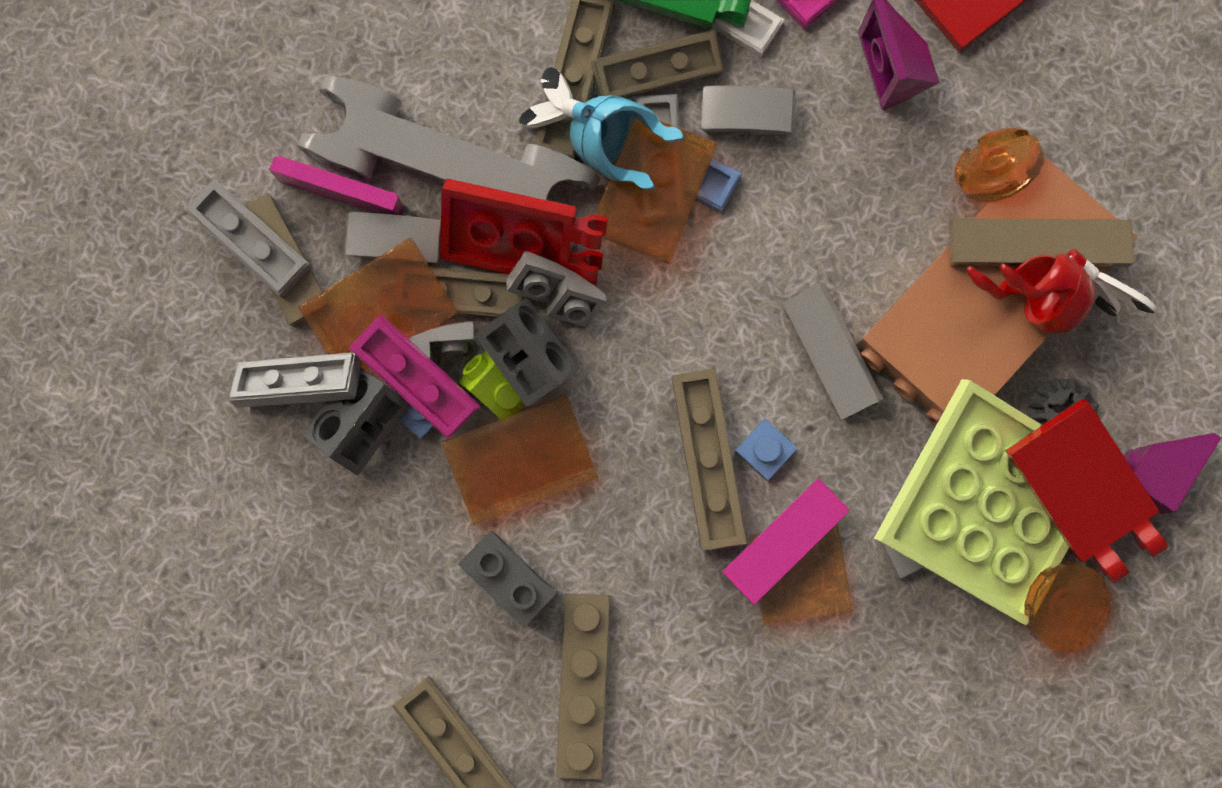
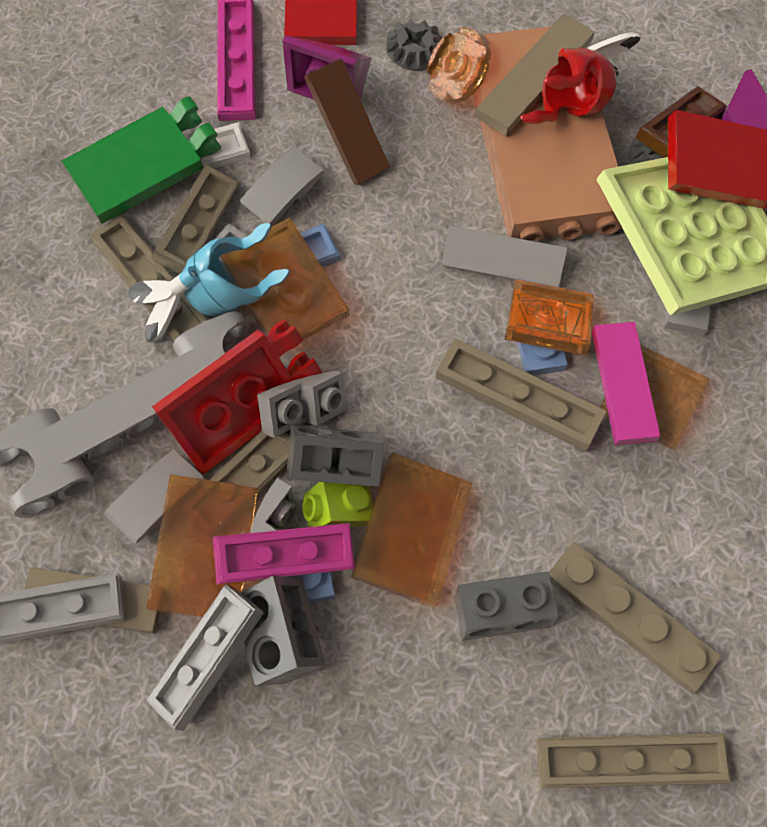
camera: 55 degrees left, 15 degrees down
(335, 187) = (73, 509): dark pink tile -> none
(800, 433) = (550, 317): none -> clear orange tile
(850, 115) = (347, 121): none -> reddish brown tile
(985, 113) = (412, 55): none -> dark grey gear
(1121, 411) = (697, 101): none -> reddish brown tile

